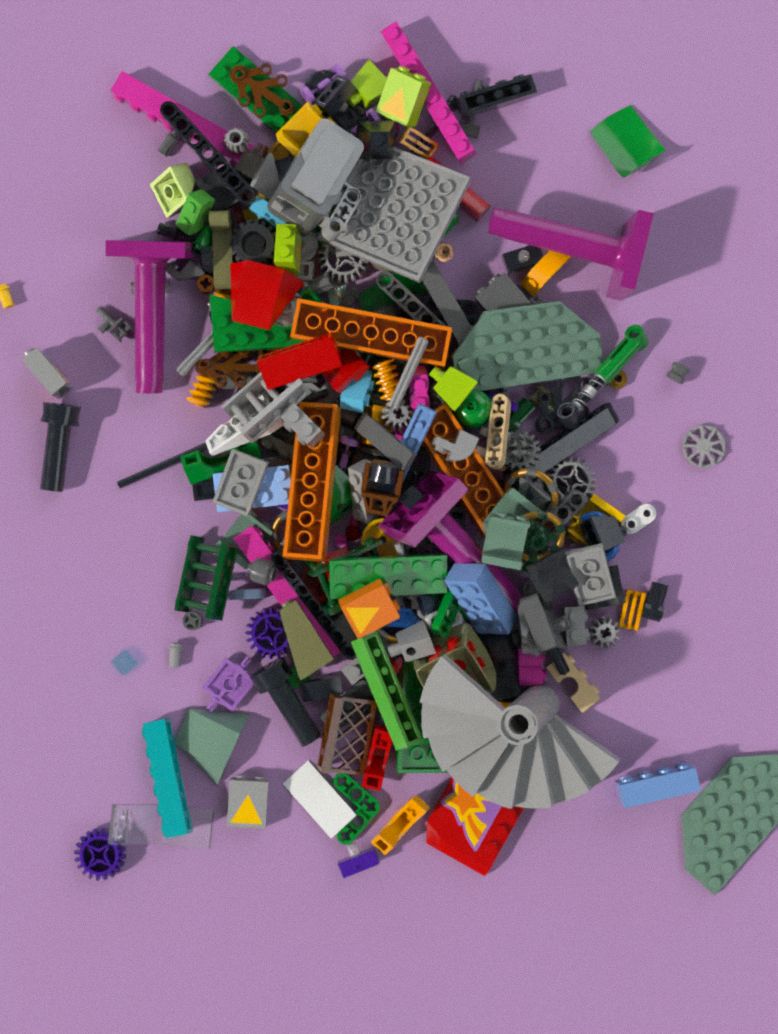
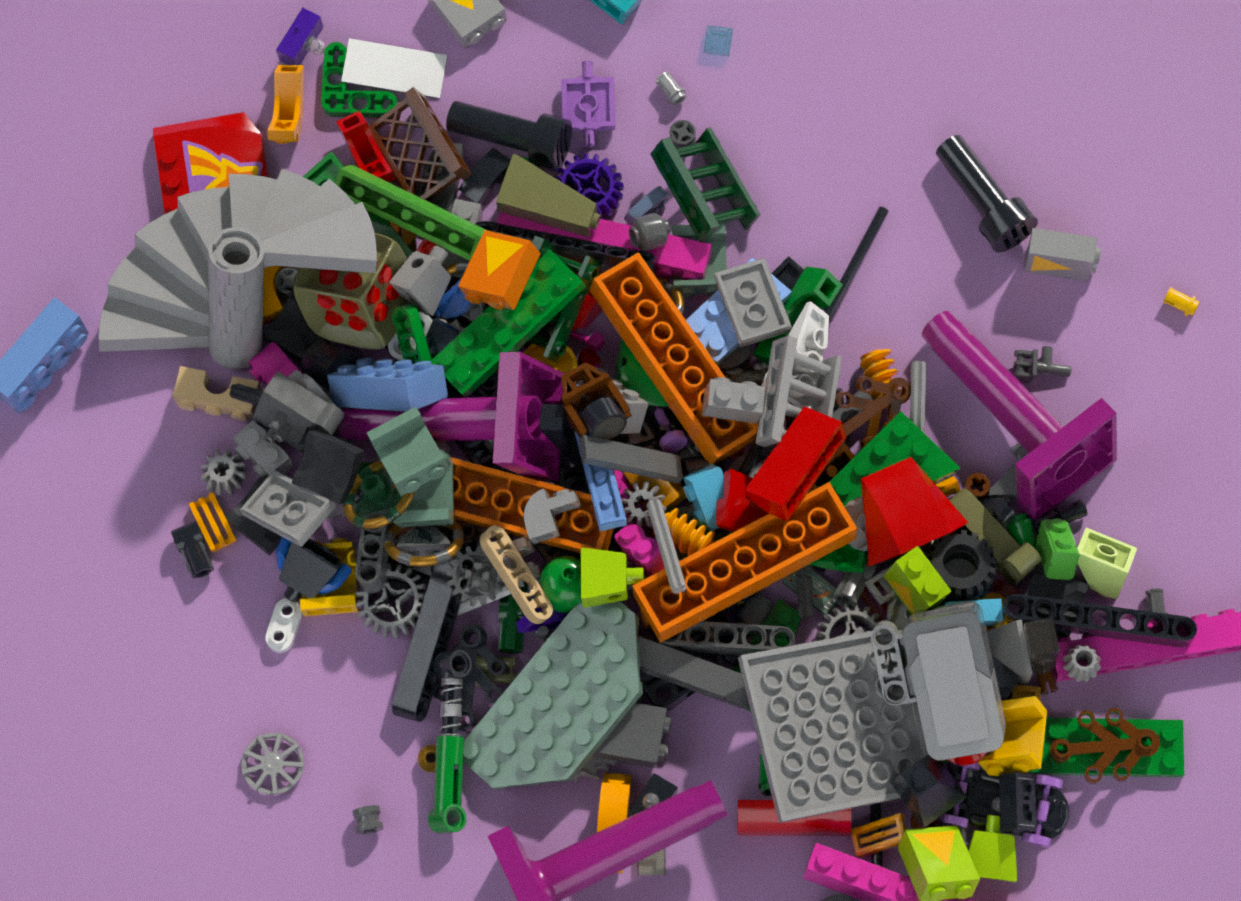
camera: 145 degrees right, 15 degrees down
(210, 739) = (561, 38): sand green wedge -> none
(444, 257) = (738, 740): light nougat plate -> none

